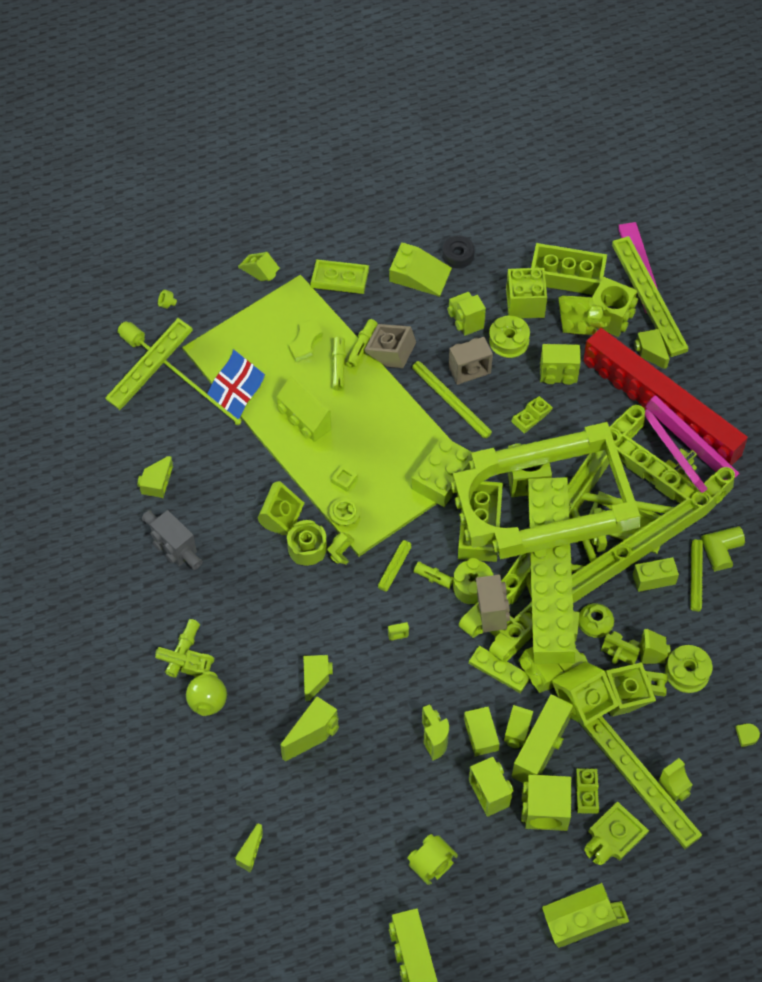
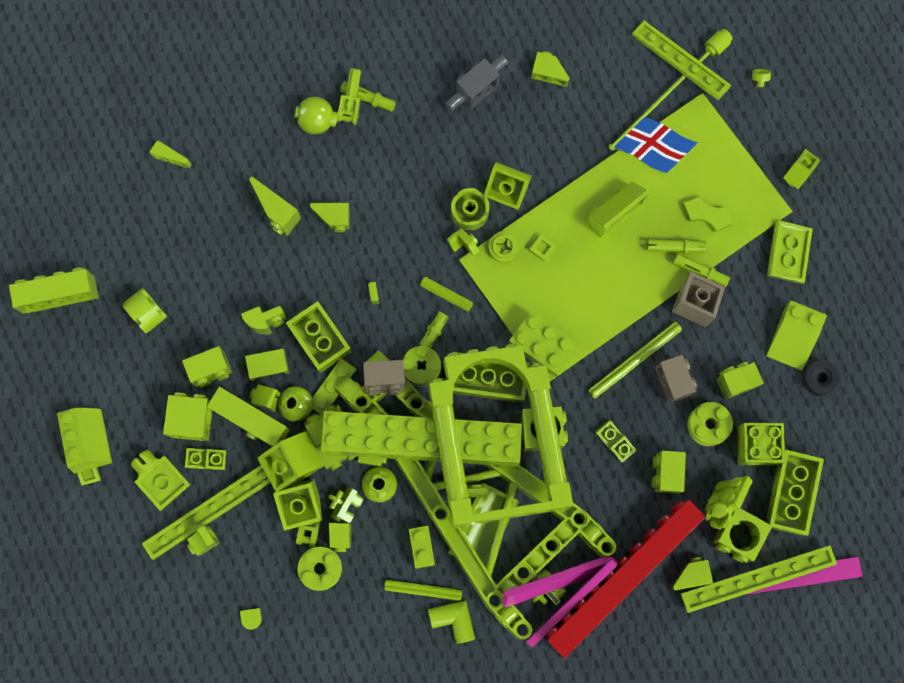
camera: 90 degrees right, 20 degrees up
(449, 679) = (319, 337): none -> lime brick
(513, 692) = (303, 404): none -> lime piece

